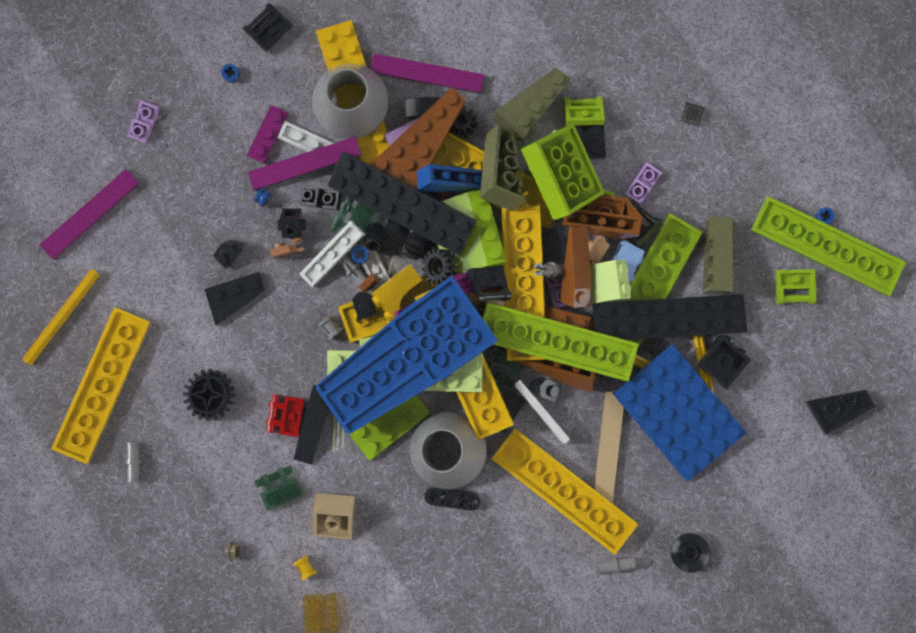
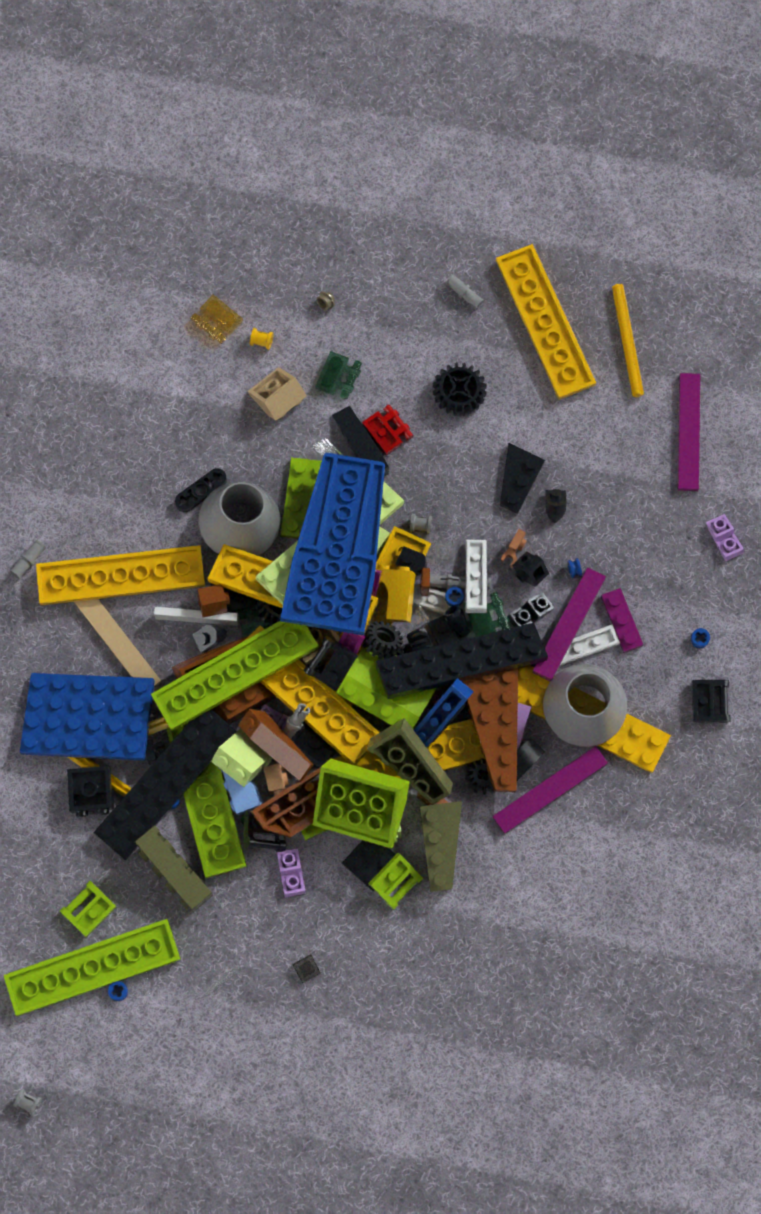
camera: 140 degrees right, 10 degrees down
(523, 407) = (213, 600): none -> dark orange brick

